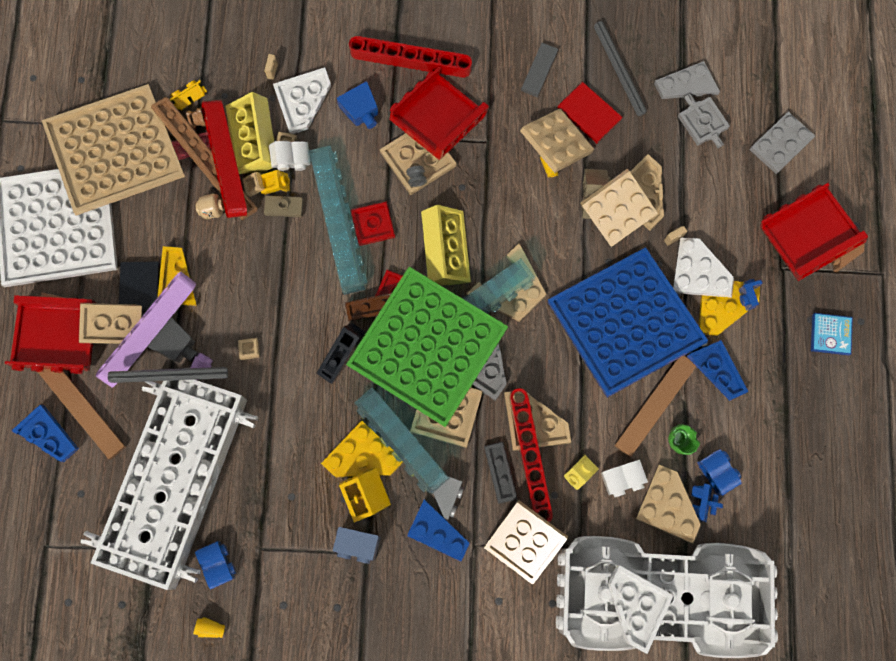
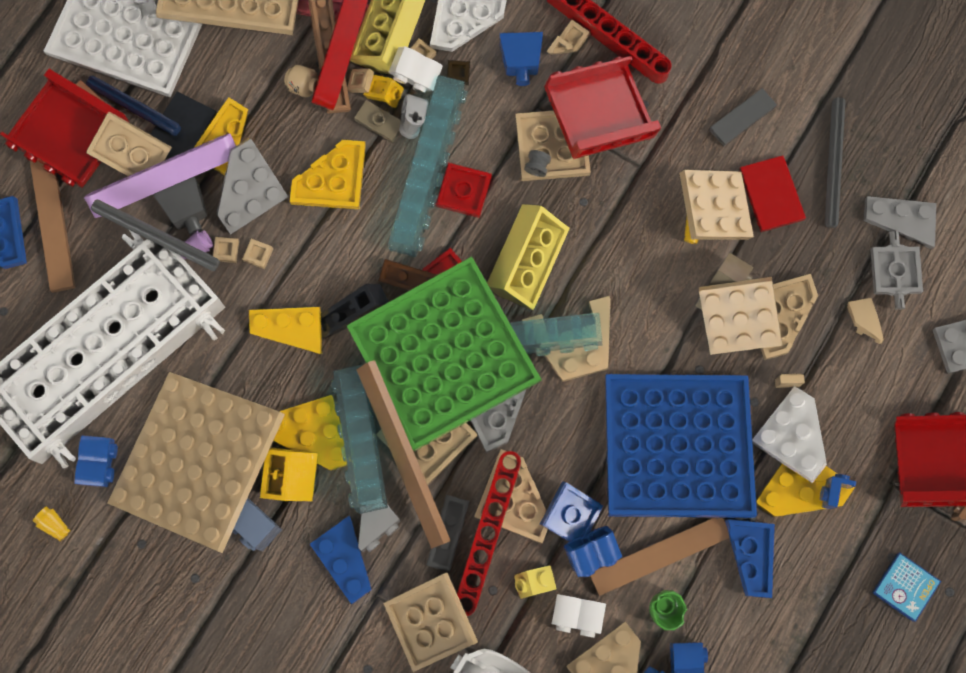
camera: 30 degrees right, 0 degrees up
(93, 290) = (133, 105): none -> dark blue axle
(215, 304) = (247, 187): none -> light grey plate
(223, 357) = (226, 249): none -> tan tile
(273, 265) = (333, 178): none -> yellow plate
(292, 522) = (196, 460): none -> tan plate
(302, 388) = (289, 326): none -> yellow wing
(306, 189) = (413, 115): none -> light grey piece
(320, 140) = (459, 70): none -> dark brown tile
(388, 77) = (570, 40): none -> tan slope
(439, 434) = (403, 454): none -> medium nougat tile
(580, 411) = (571, 513): none -> tile
(609, 428) = (593, 551): none -> blue brick
(702, 165) = (866, 318): none -> tan slope

